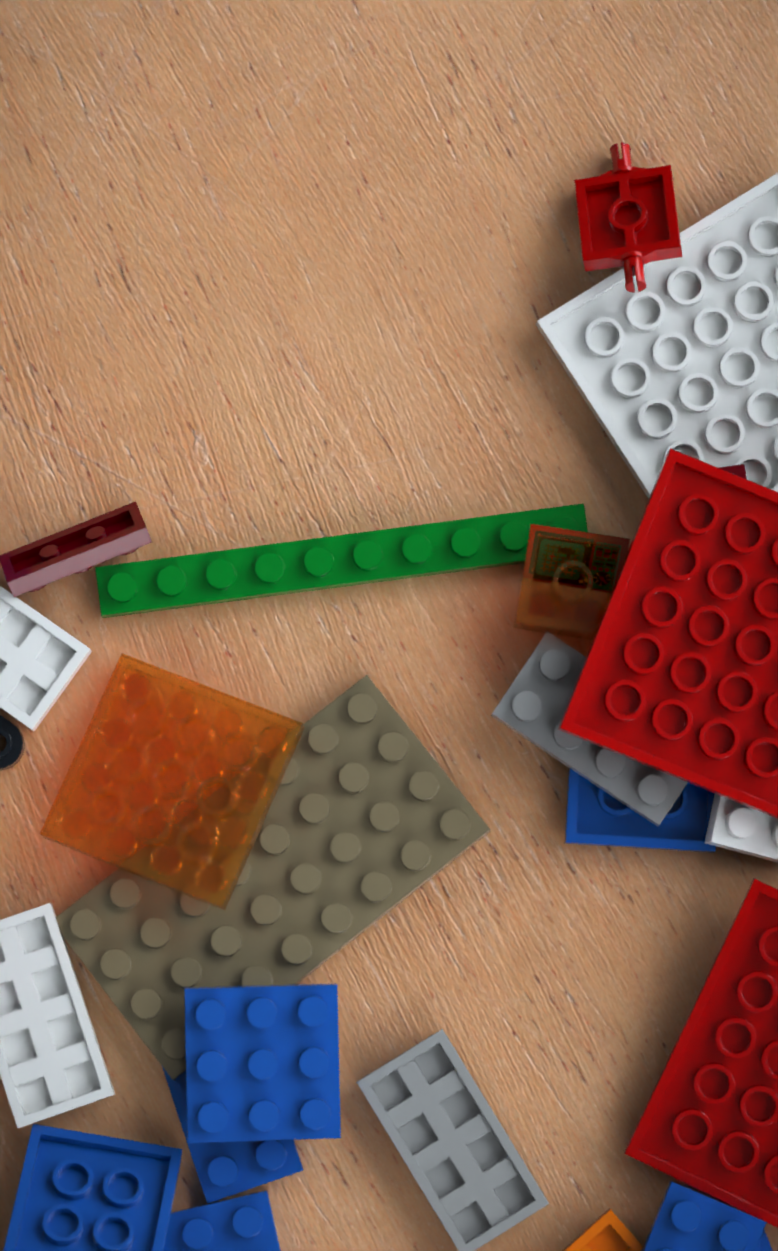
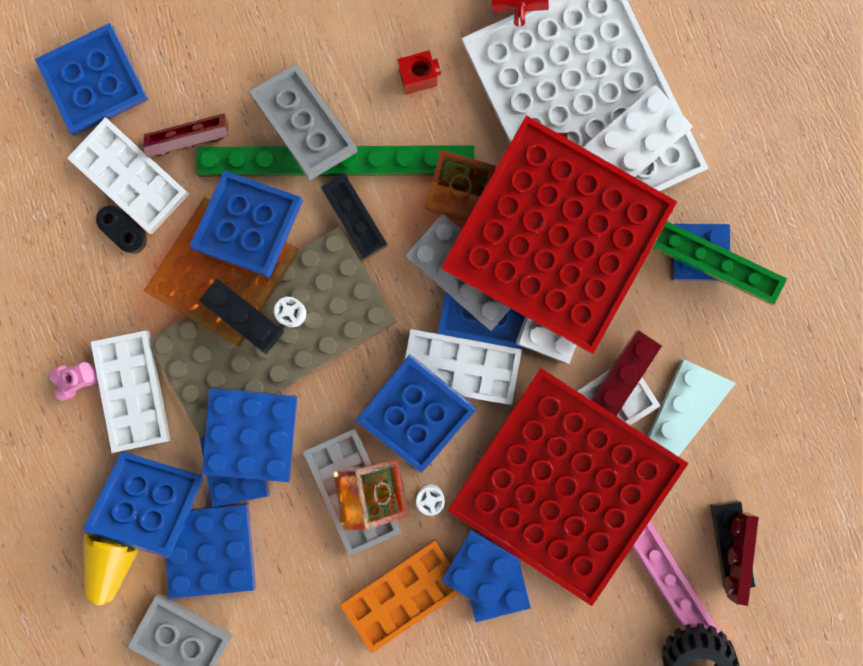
camera: 15 degrees right, 5 degrees up
(209, 693) = (246, 224): none -> blue plate
(225, 854) = (241, 316): none -> black plate
(280, 501) = (303, 122): none -> light grey plate
(300, 830) = (286, 307): none -> white wheel
(390, 655) = (354, 216): none -> black plate
(457, 406) = (420, 60): none -> red brick
(489, 1139) = (370, 495): none -> clear orange slope
(547, 988) = (415, 413): none -> blue plate
(603, 1143) = (431, 504): none -> white wheel
(614, 896) = (468, 366): none -> white plate

